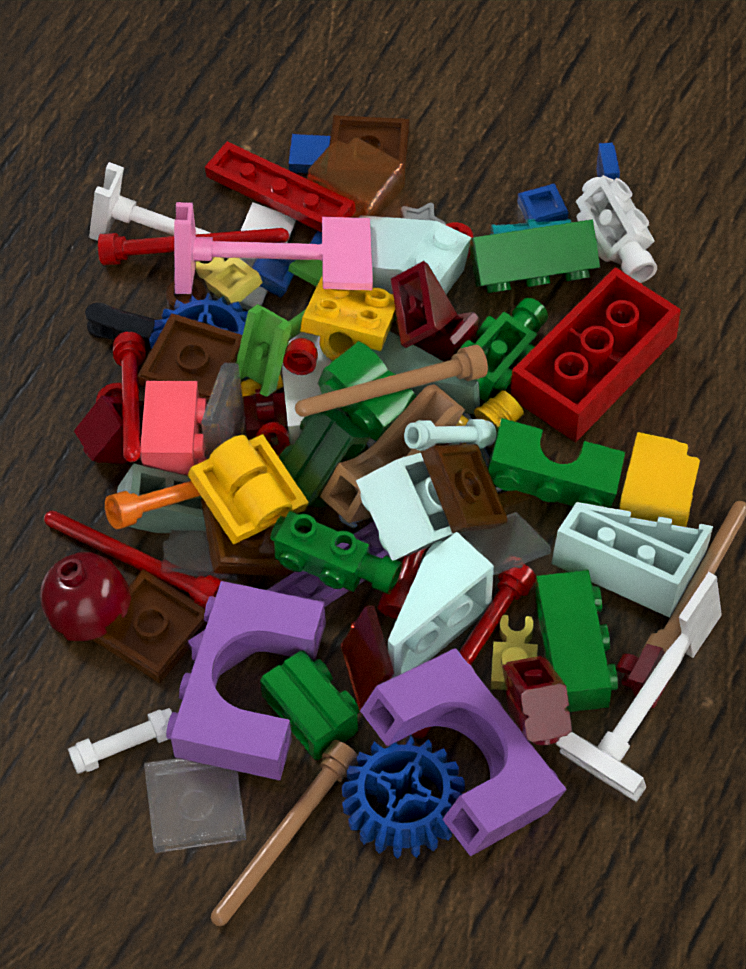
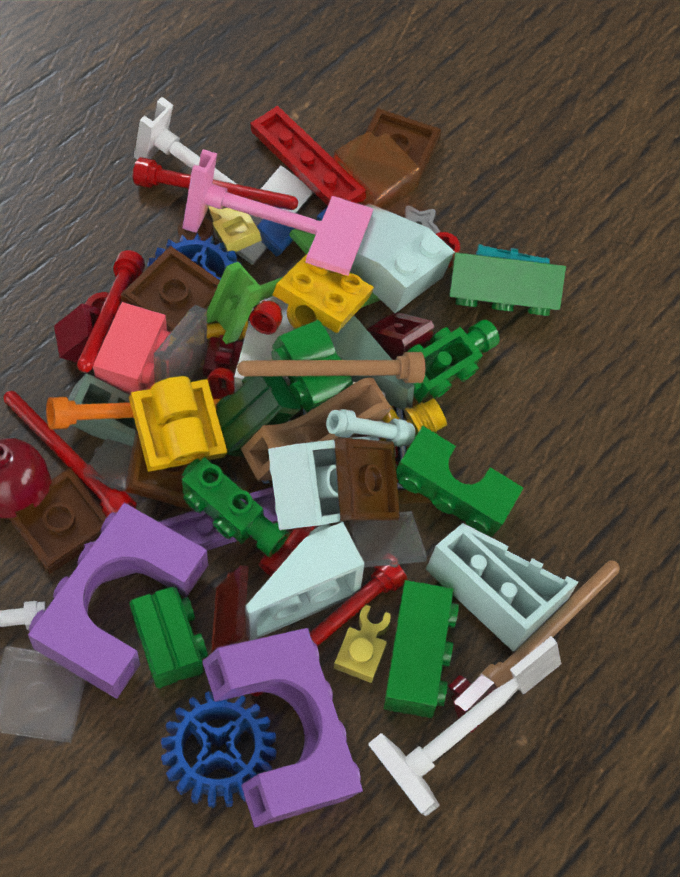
camera: 10 degrees right, 5 degrees up
(110, 322) = (123, 237): black bar -> none
(305, 151) = (342, 131): blue tile -> none
(334, 767) = (172, 697): medium nougat piece -> none
(420, 304) = (387, 300): dark red slope -> none
(537, 700) = (364, 698): dark red brick -> none
(543, 204) = (531, 238): blue tile -> none
(595, 354) = (528, 388): red brick -> none
(607, 161) = (597, 223): blue tile -> none
(621, 234) = (588, 278): white brick -> none
(659, 480) = (545, 524): yellow piece -> none

